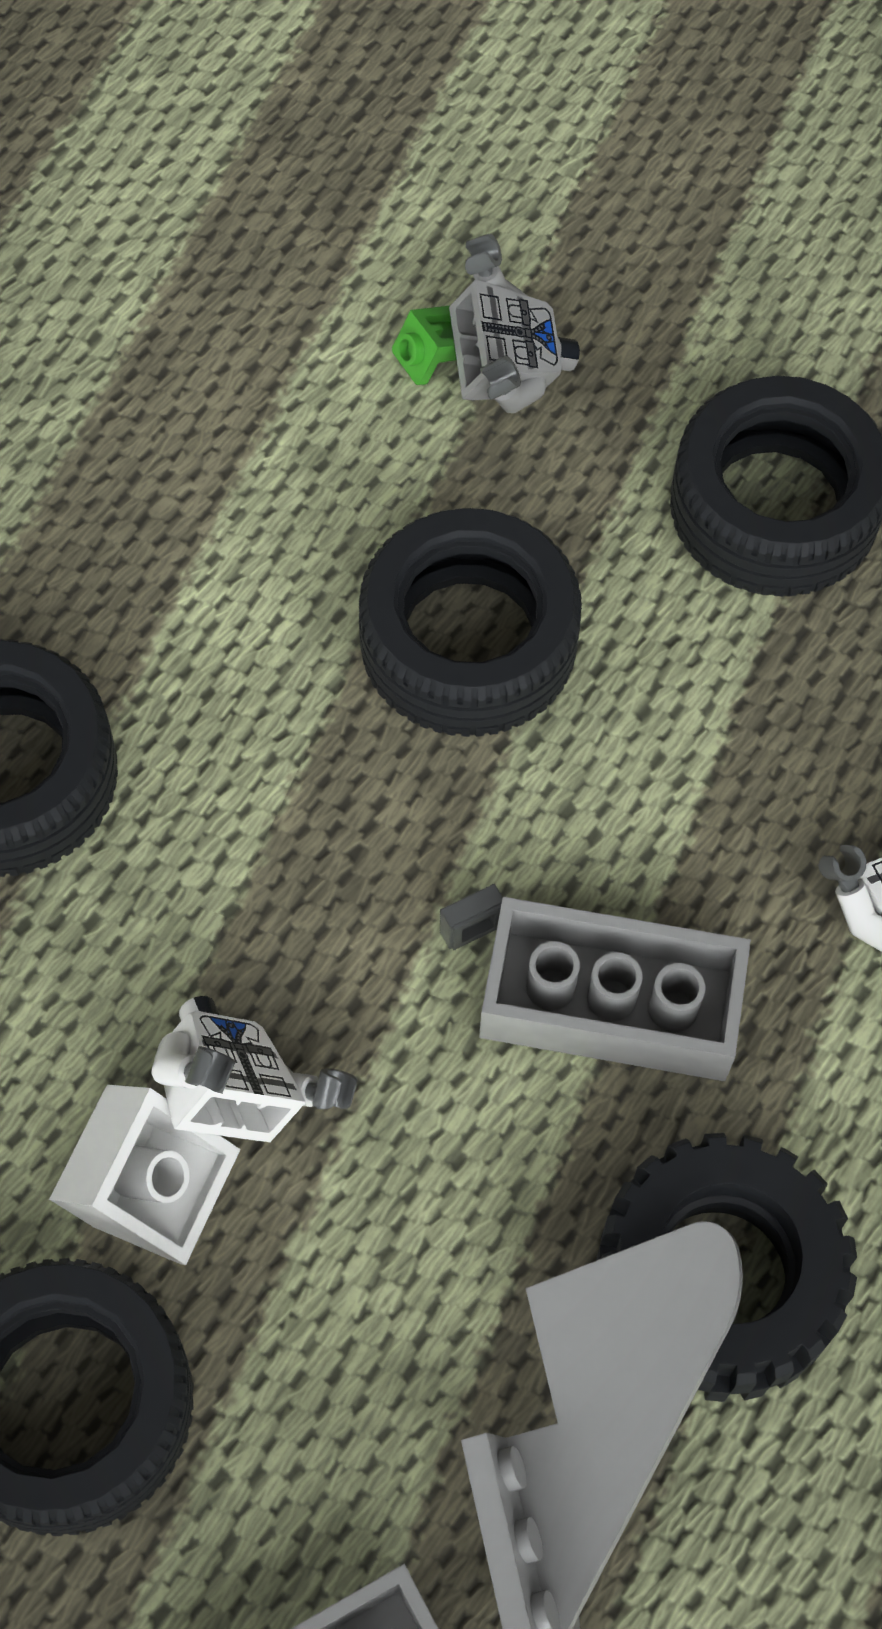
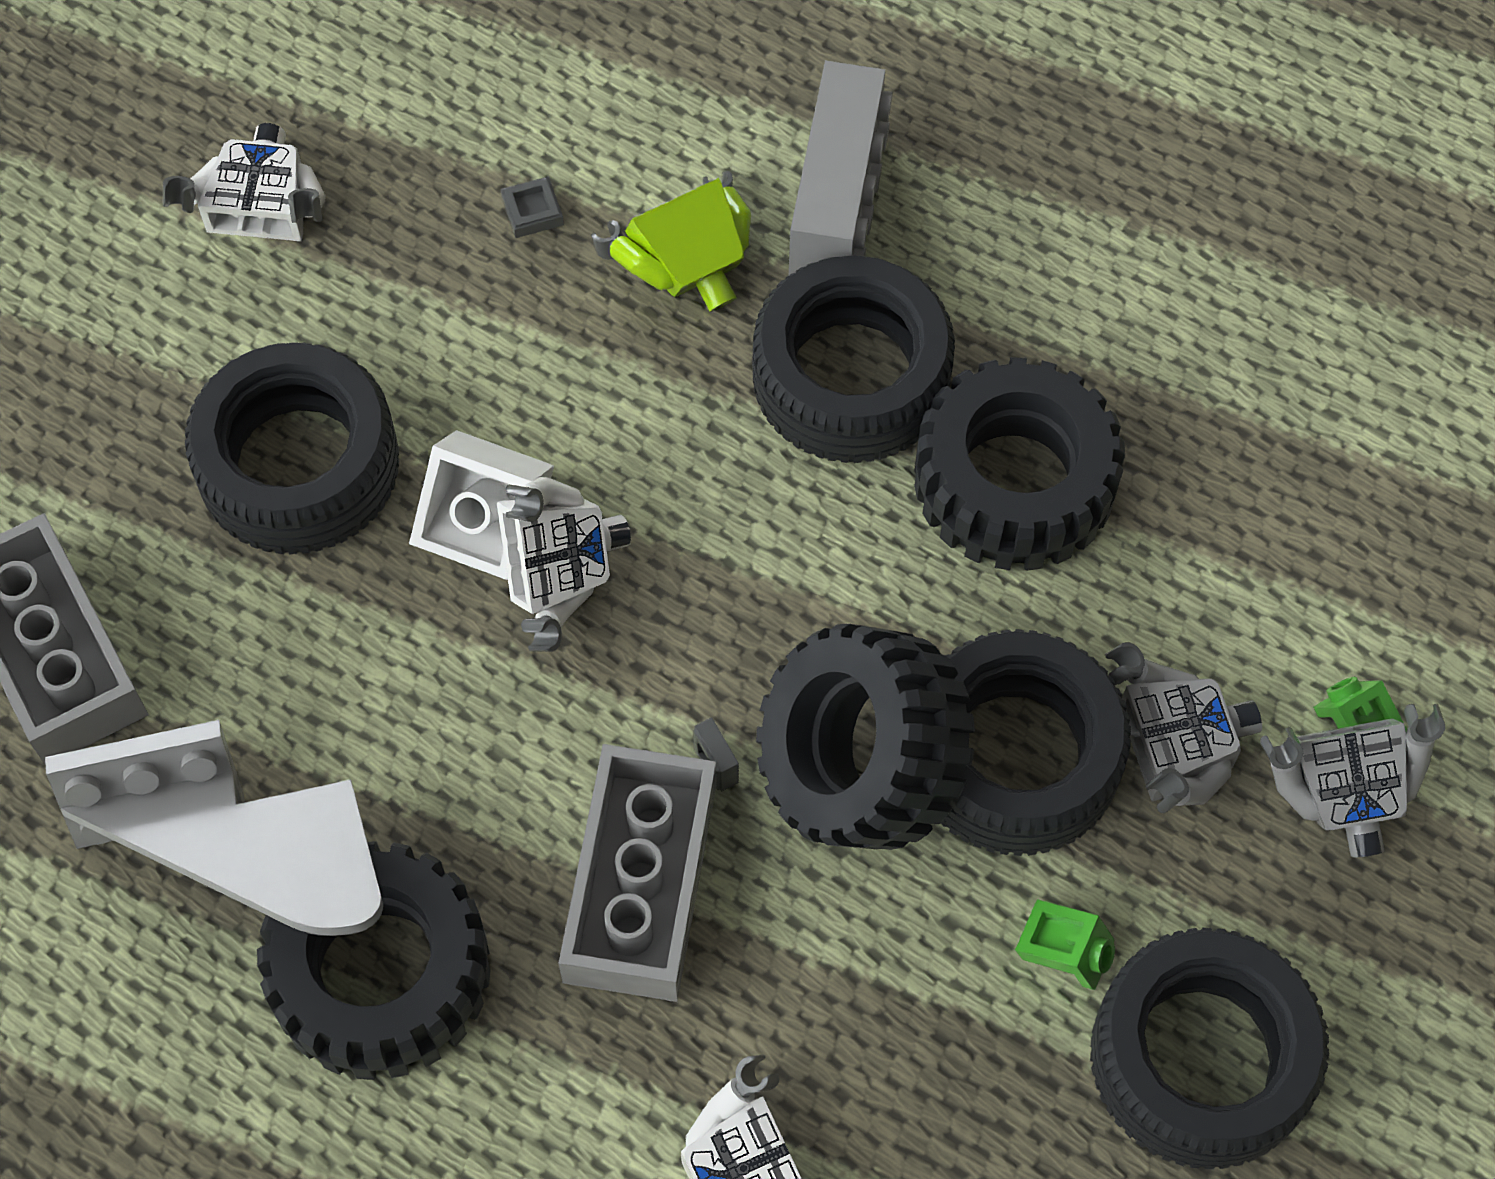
camera: 90 degrees right, 0 degrees up
(135, 540) = (1028, 404): none -> black tyre
(454, 474) = (1180, 728): none -> torso
(534, 796) = (917, 743): none -> black tyre
(669, 603) = (1067, 942): none -> bright green bracket

